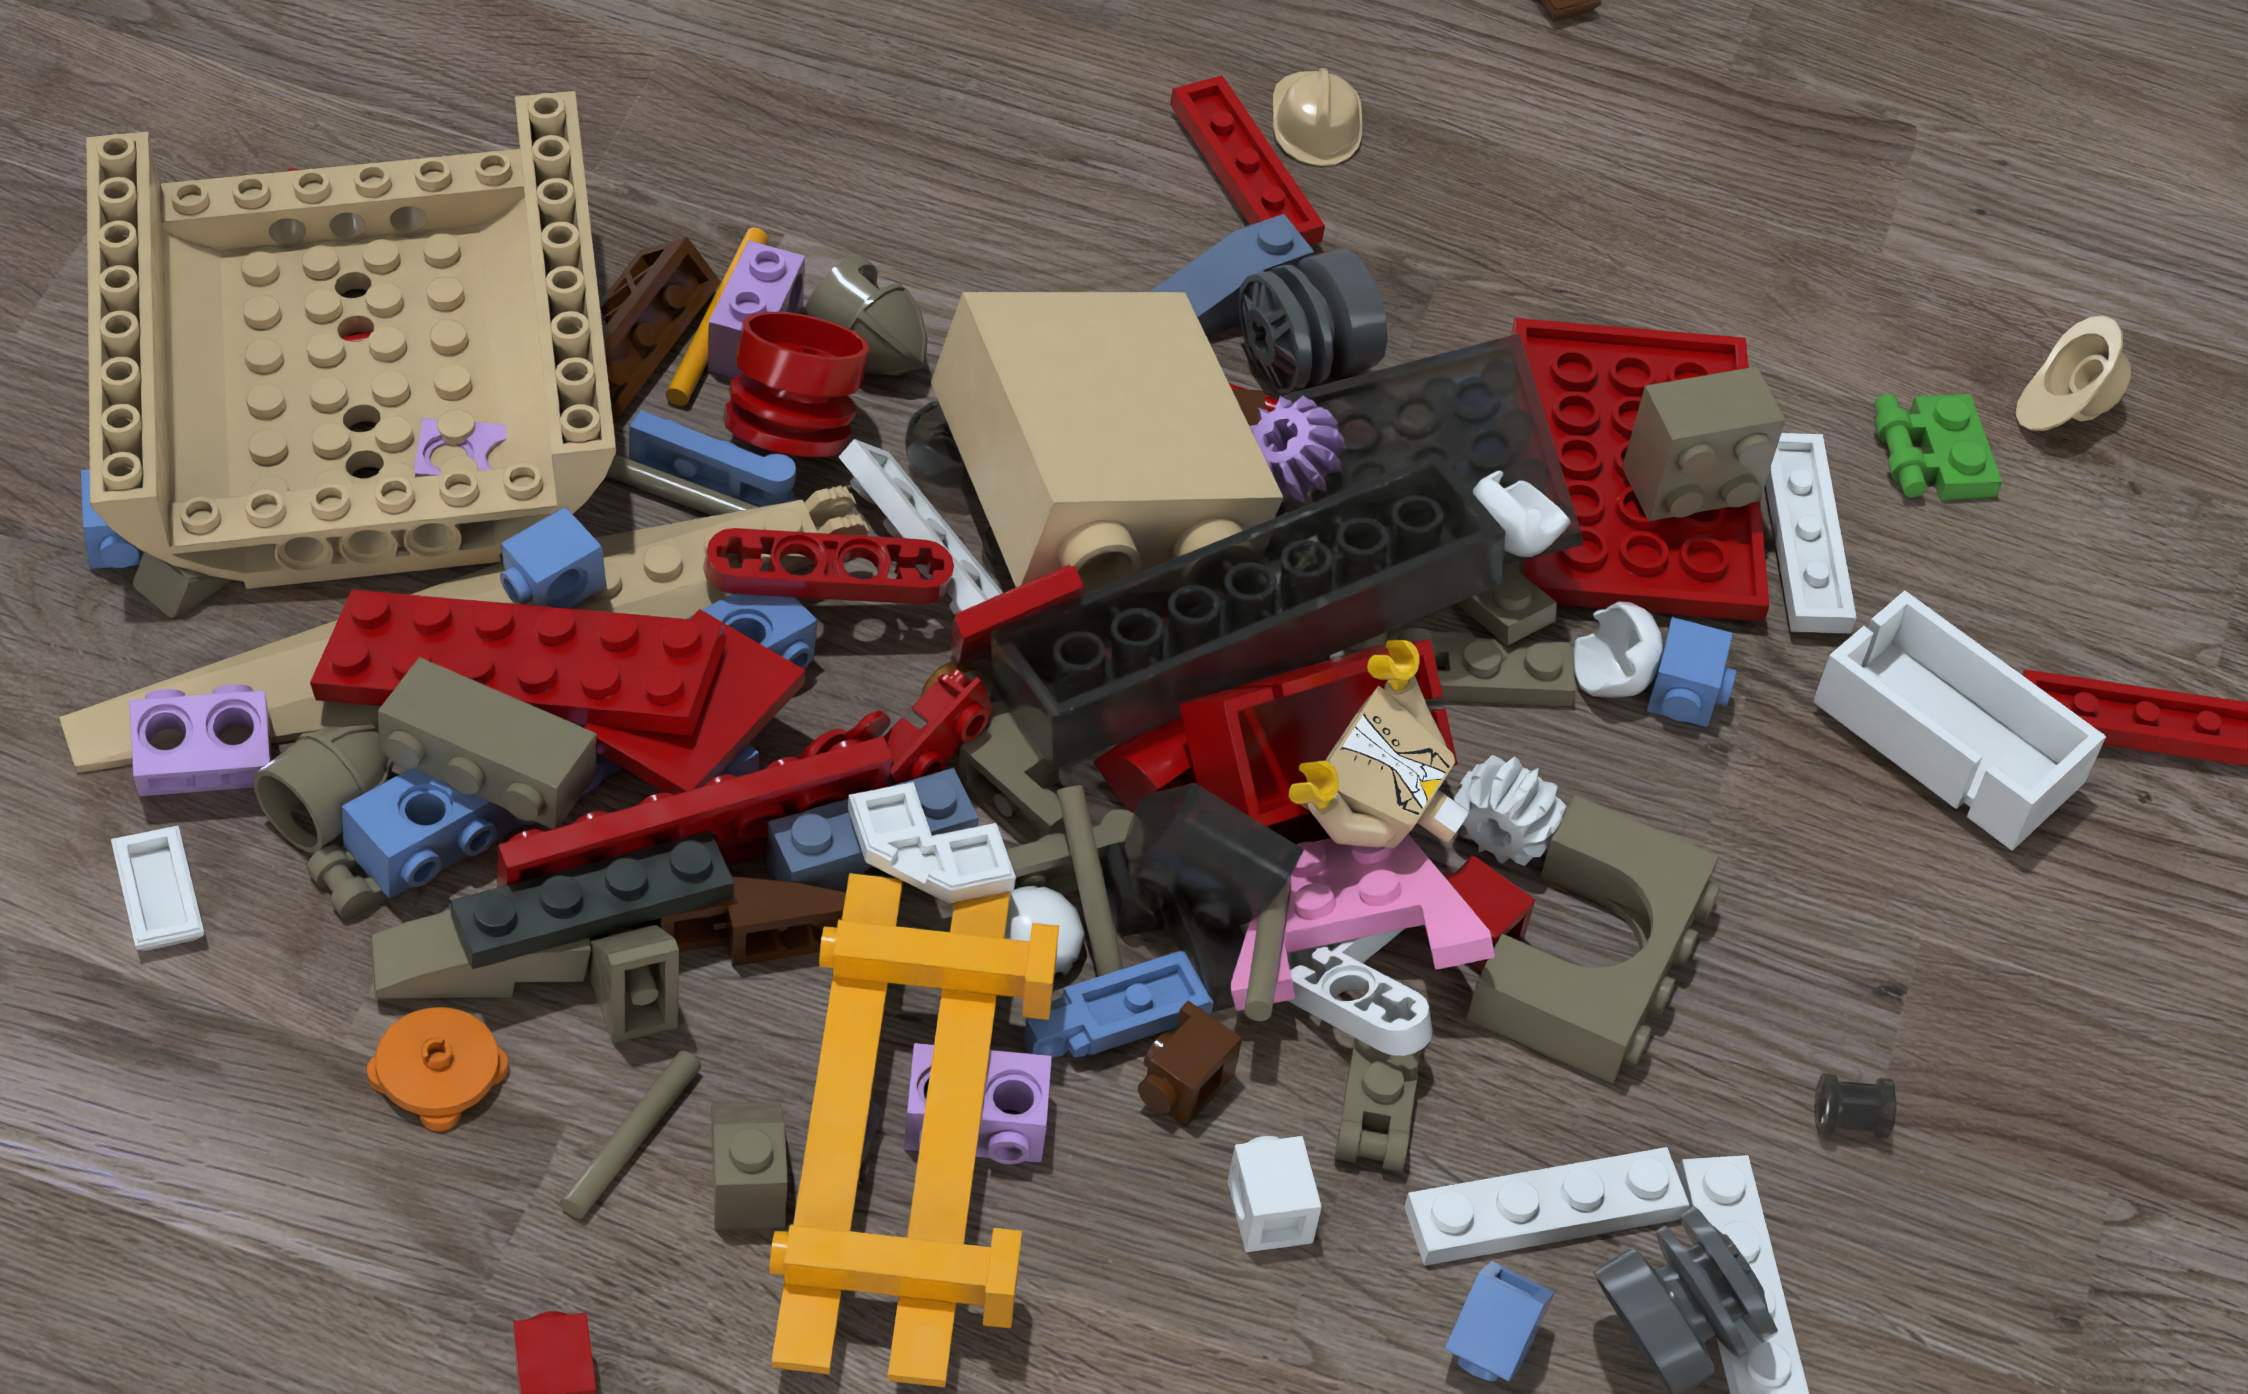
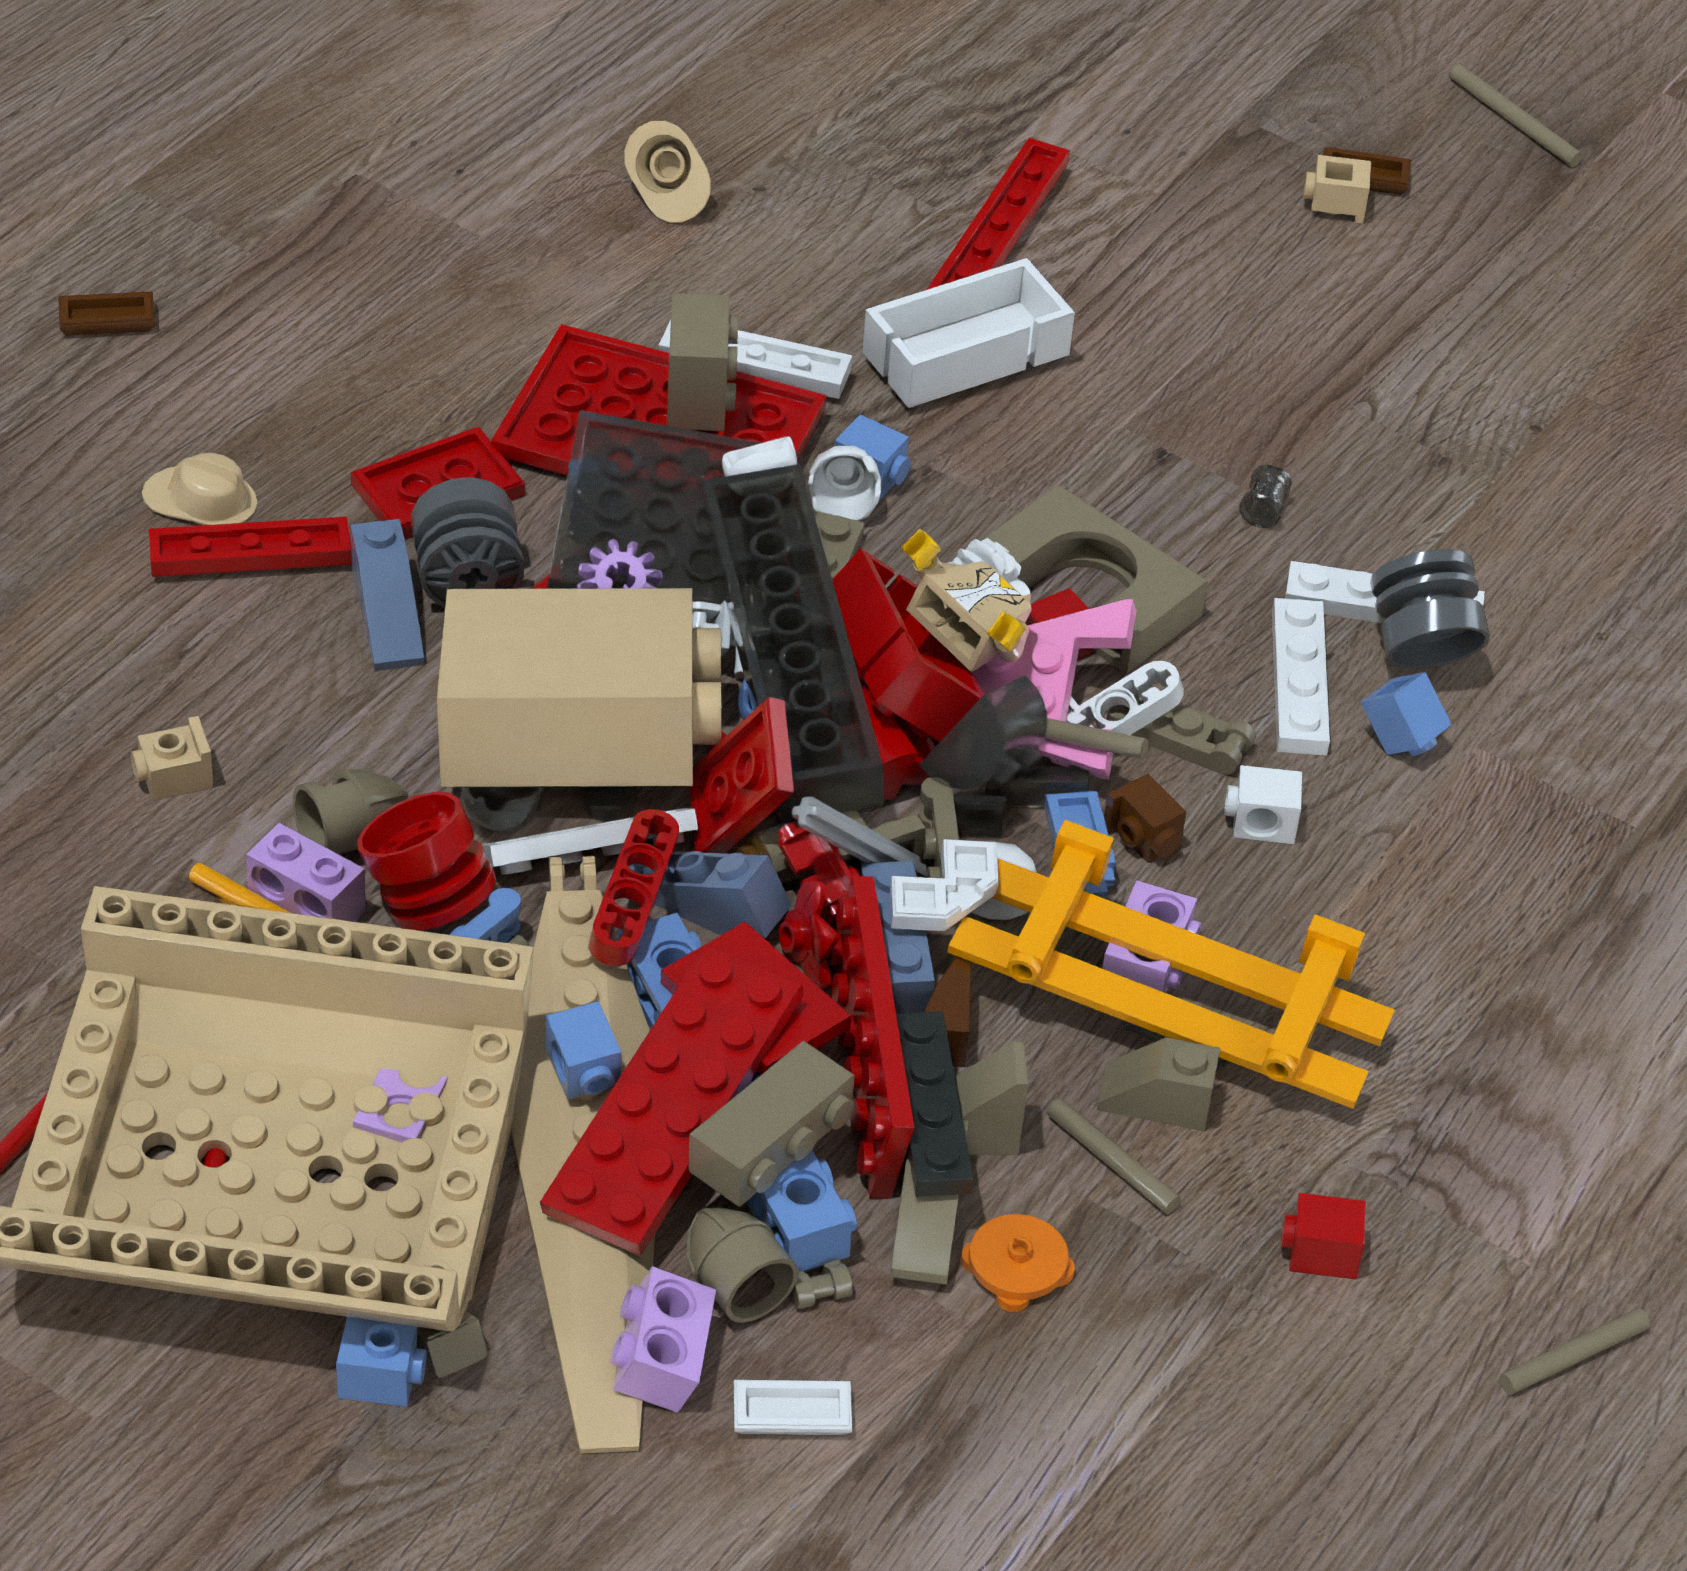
camera: 70 degrees left, 5 degrees down
(889, 168) = (174, 761): none -> tan brick
(890, 661) = (722, 890): none -> sand blue slope
(961, 736) = (851, 835): none -> light grey axle
(1090, 880) = (984, 820): dark tan bar -> none
(1439, 295) = (396, 483): none -> red tile
(1952, 445) = (691, 265): bright green plate -> none

